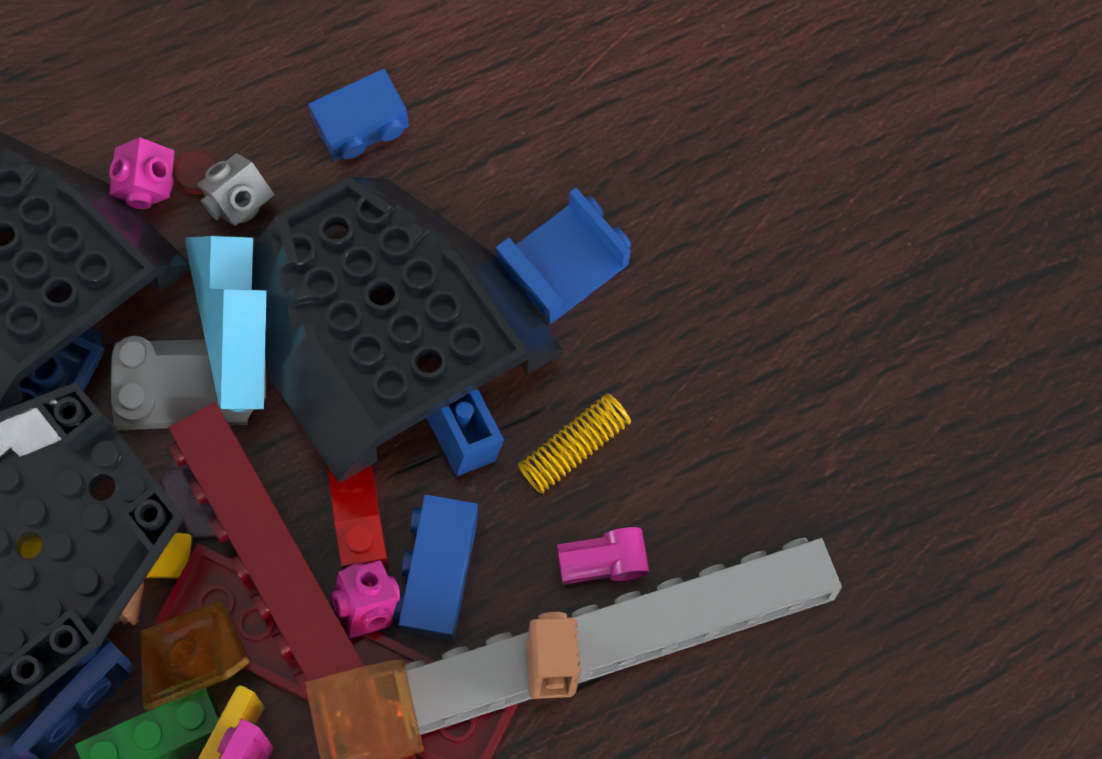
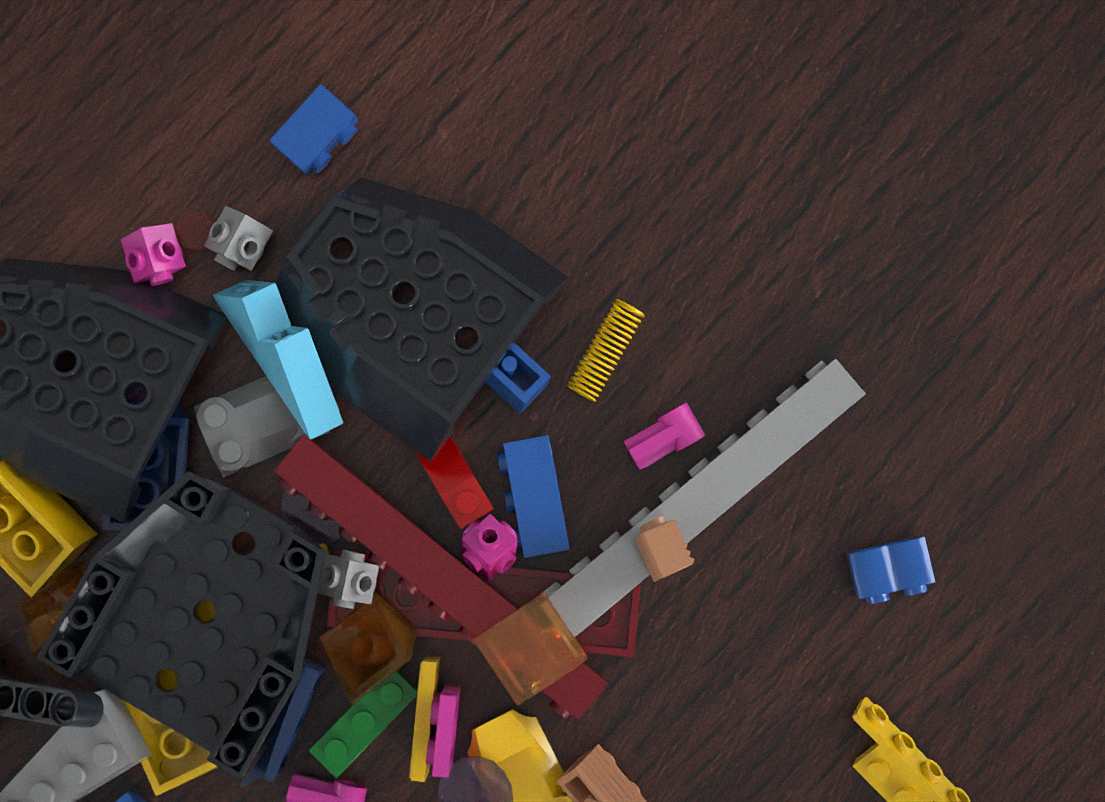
camera: 25 degrees left, 15 degrees up
(196, 570) = (348, 579): none -> light grey brick
(566, 257) = (536, 191): blue panel -> none

